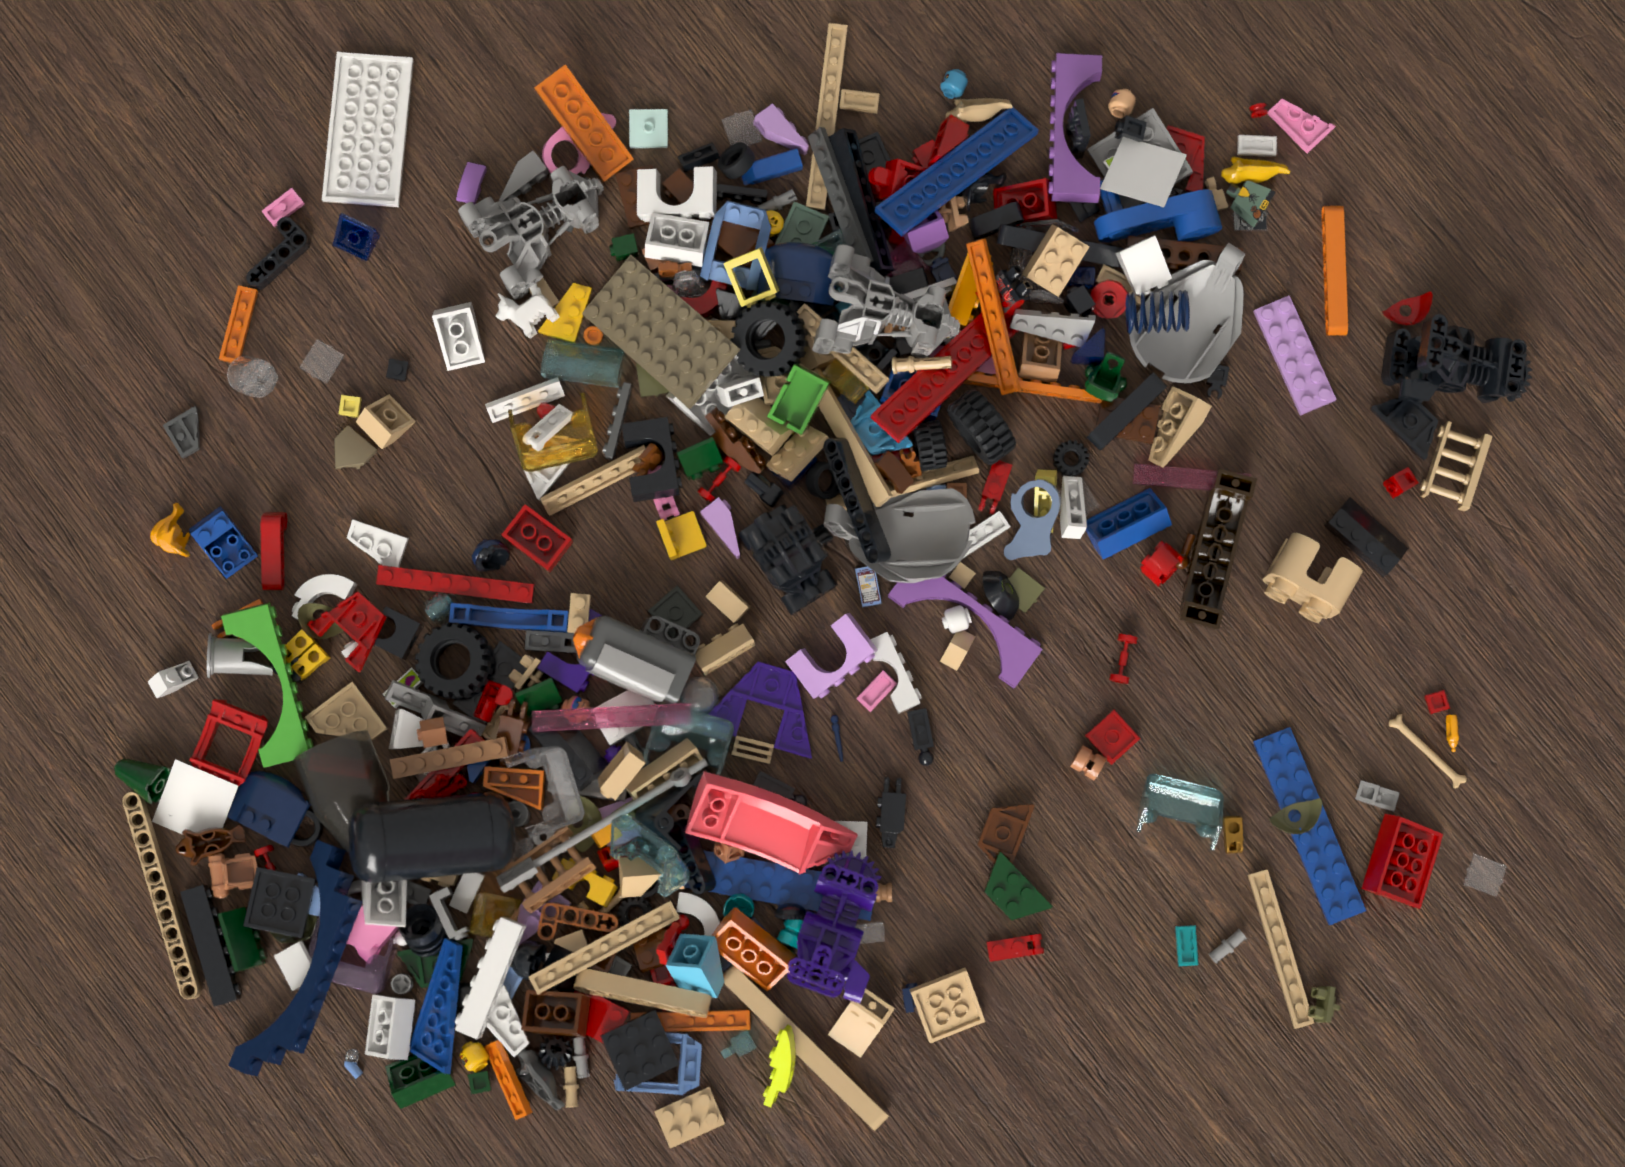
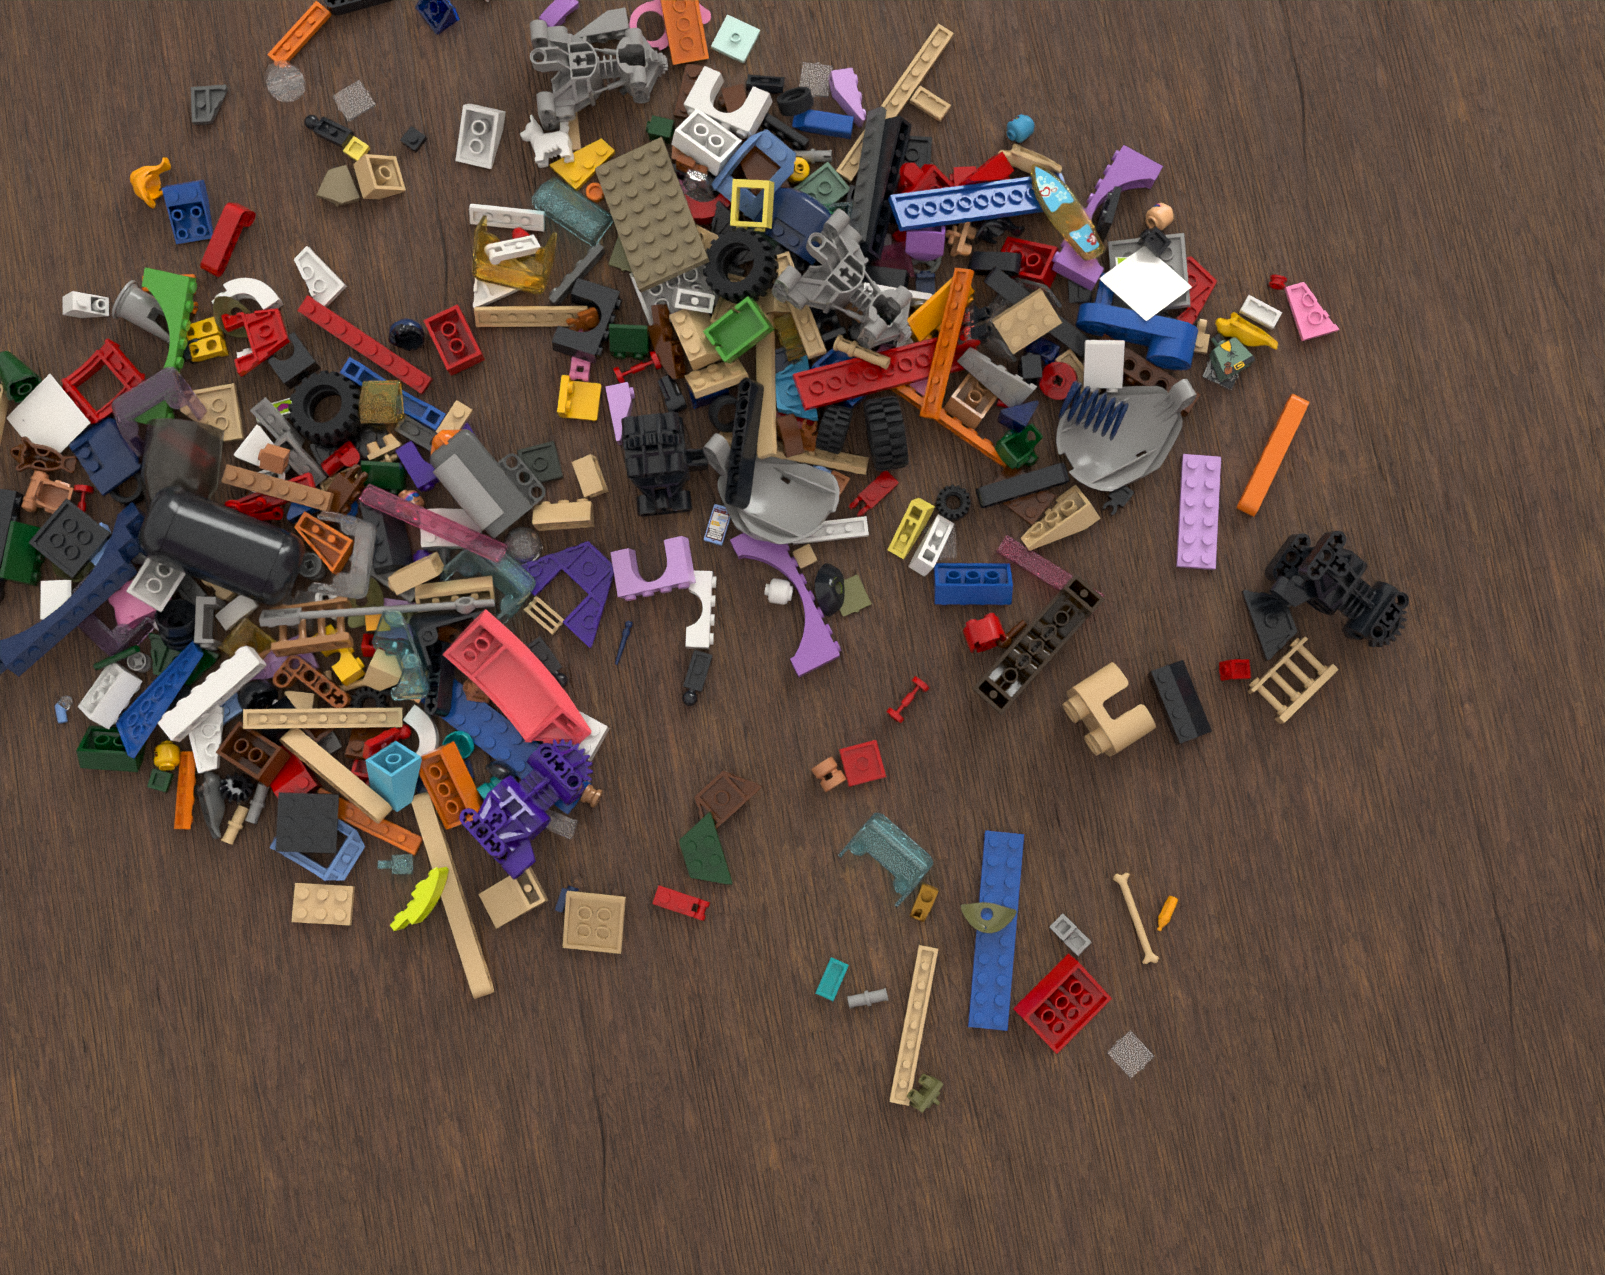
camera: 30 degrees right, 0 degrees up
(284, 733) = (162, 386): none -> windscreen
(315, 401) = (329, 130): none -> black plate
(379, 990) = (116, 657): none -> dark green bar
(438, 606) = (338, 356): clear light blue head -> none
(502, 630) = (381, 402): none -> clear yellow slope
(876, 691) = (677, 619): bright pink tile -> none
(892, 813) = (634, 731): black hinge -> none
(957, 649) = (767, 618): tan slope -> none
(1034, 534) = (886, 550): sand blue animal -> none
(1039, 143) = (1066, 213): none -> piece
(1419, 309) = (1331, 521): red piece -> none
(1437, 702) = (1167, 879): red tile -> none

